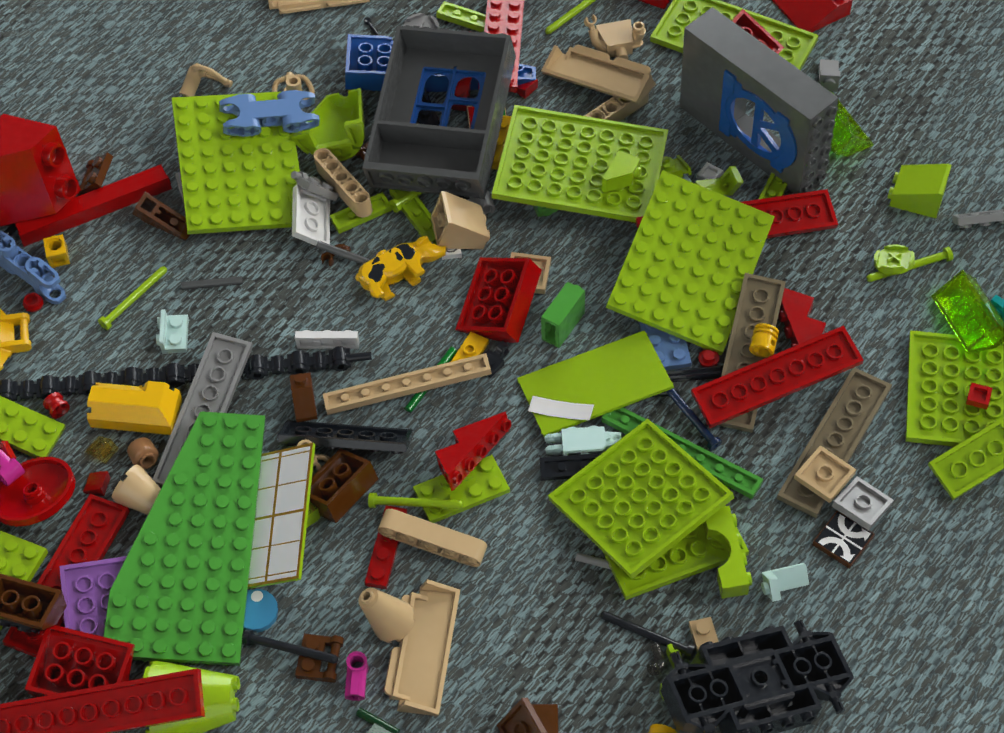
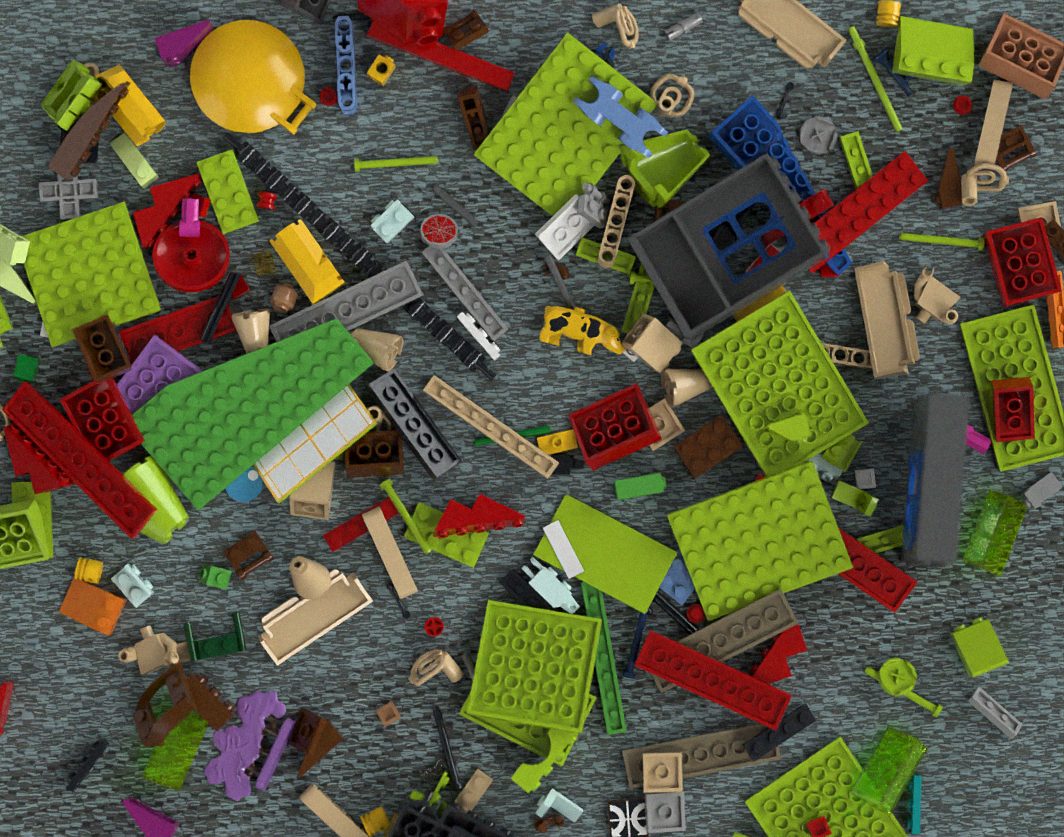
camera: 45 degrees right, 30 degrees up
(96, 503) = (220, 307): none -> black axle
(217, 303) = (439, 231): none -> tile
(249, 637) = (221, 498): black bar -> none
(252, 49) = (683, 26): none -> light grey pin
(262, 404) = (379, 346): none -> tan cone
(278, 322) = (465, 292): none -> light grey plate
(303, 397) = (417, 366): reddish brown slope -> none
(308, 699) = (214, 576): none -> bright green bracket
(324, 559) = (315, 495): none -> tan slope
(356, 677) = (253, 593): dark pink piece -> none
(497, 573) = (406, 614): none -> black hinge
(513, 230) = (683, 384): none -> tan cone
(528, 552) = (434, 624): none -> red wheel
(570, 569) = (442, 661): none -> tan piece
(571, 657) = (388, 713): none -> medium nougat tile
(579, 251) = (707, 446): none -> reddish brown brick
(764, 340) = (731, 650): yellow piece -> none
(791, 598) = (541, 824): none -> reddish brown arm
(867, 373) = (771, 738): none -> black plate

